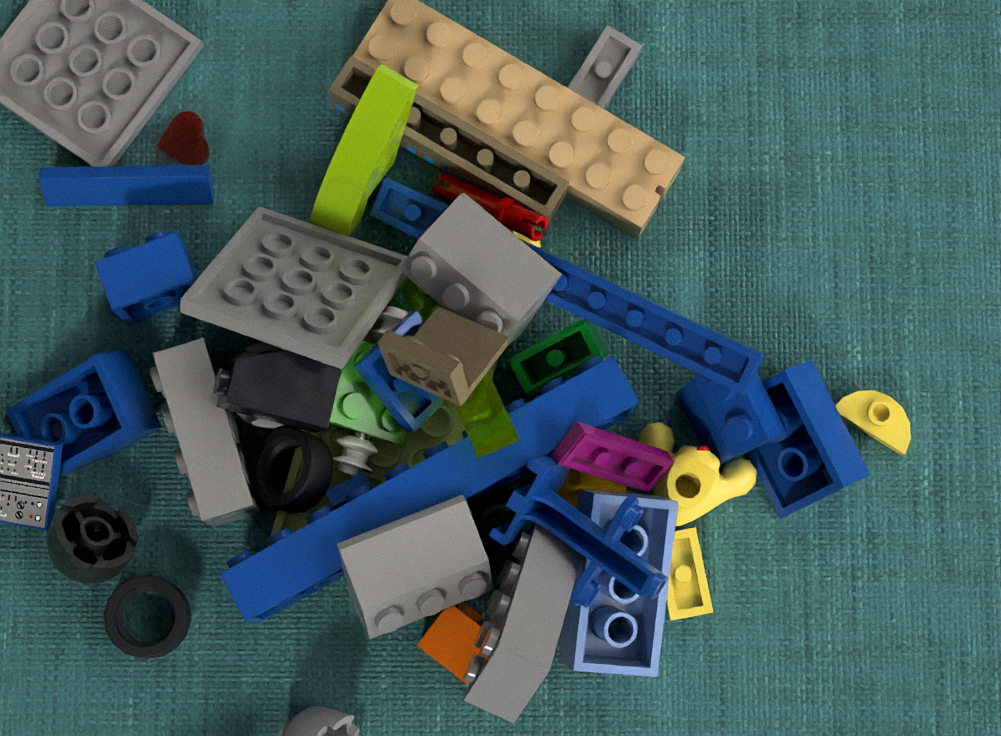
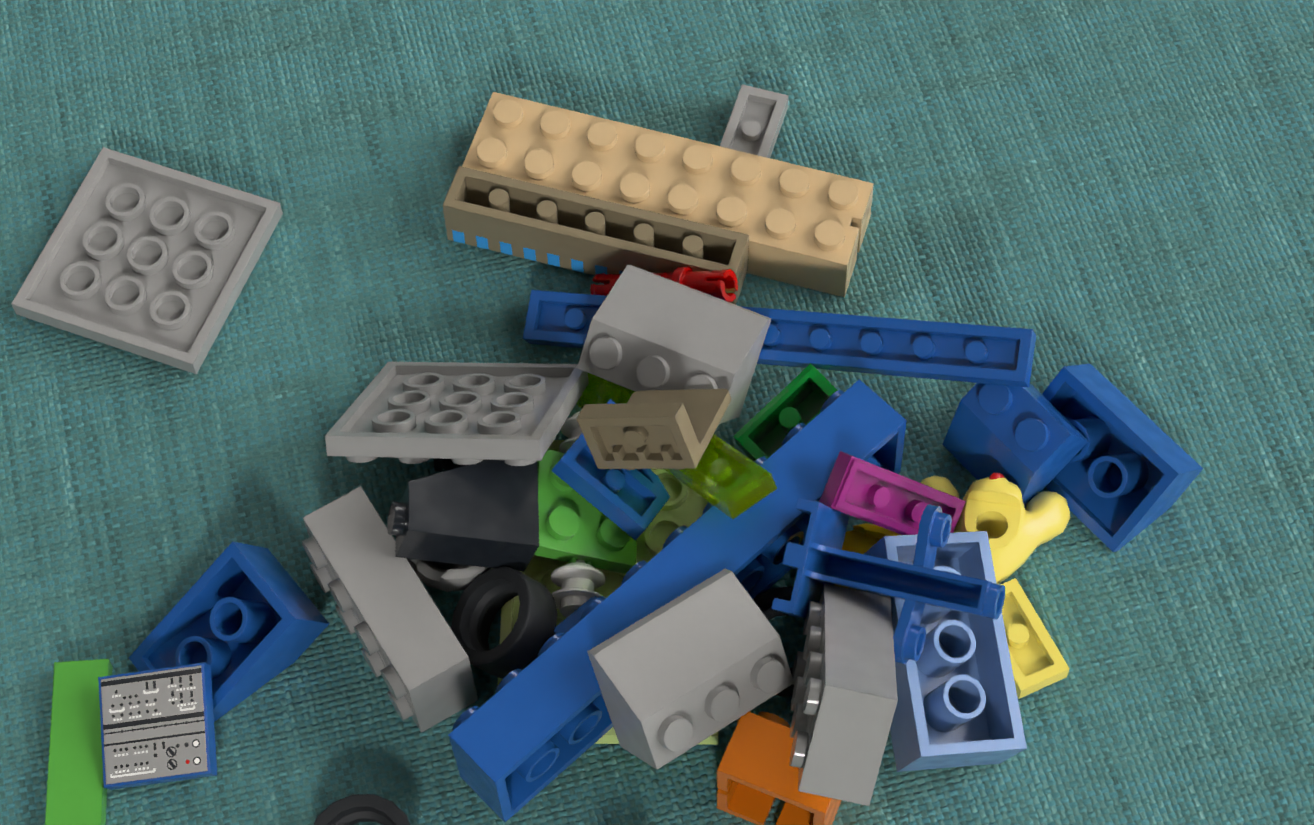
camera: 10 degrees left, 20 degrees down
(91, 540) = (269, 772): pearl dark grey cylinder -> none
(127, 185) = (225, 371): blue tile -> none
(147, 277) = (277, 454): blue brick -> none
(185, 139) = (284, 314): clear red tile -> none
(364, 151) = (502, 253): lime slope -> none
(877, 417) = (1190, 414): light yellow plate -> none

